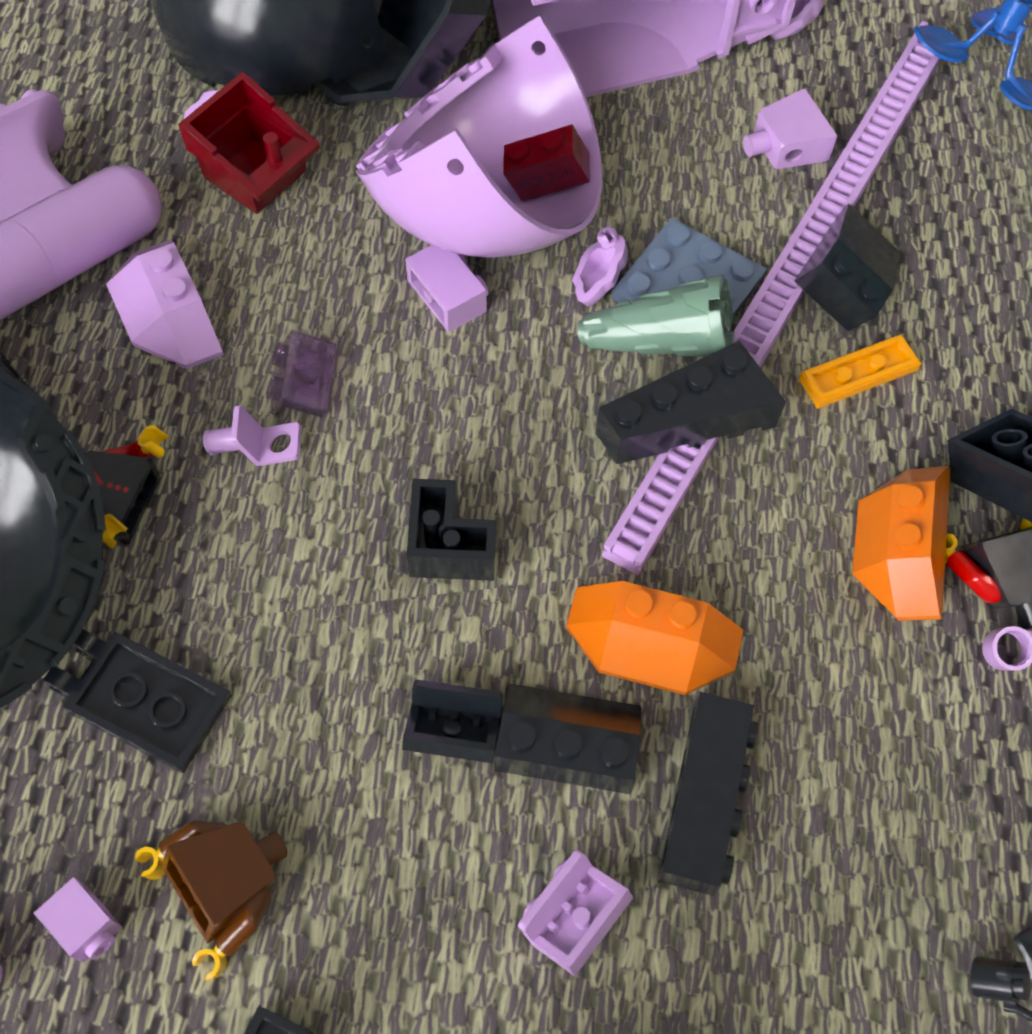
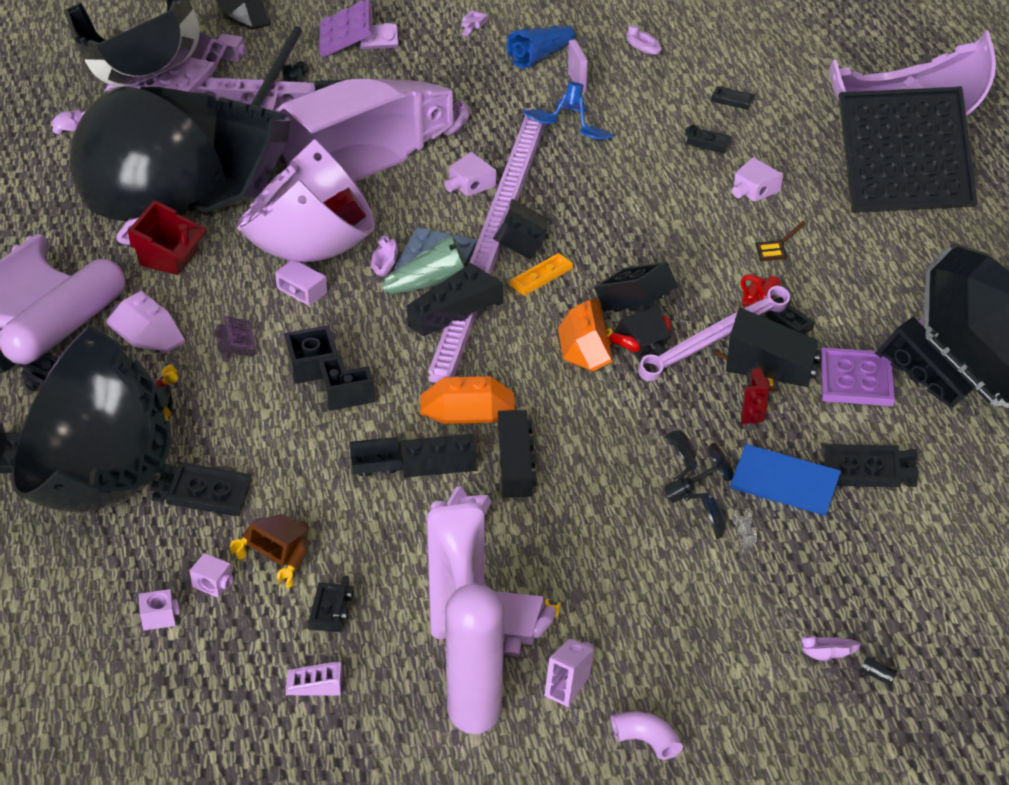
camera: 15 degrees left, 20 degrees down
(253, 440) = (214, 369): lavender bracket -> none
(409, 444) = (305, 349): none -> black brick

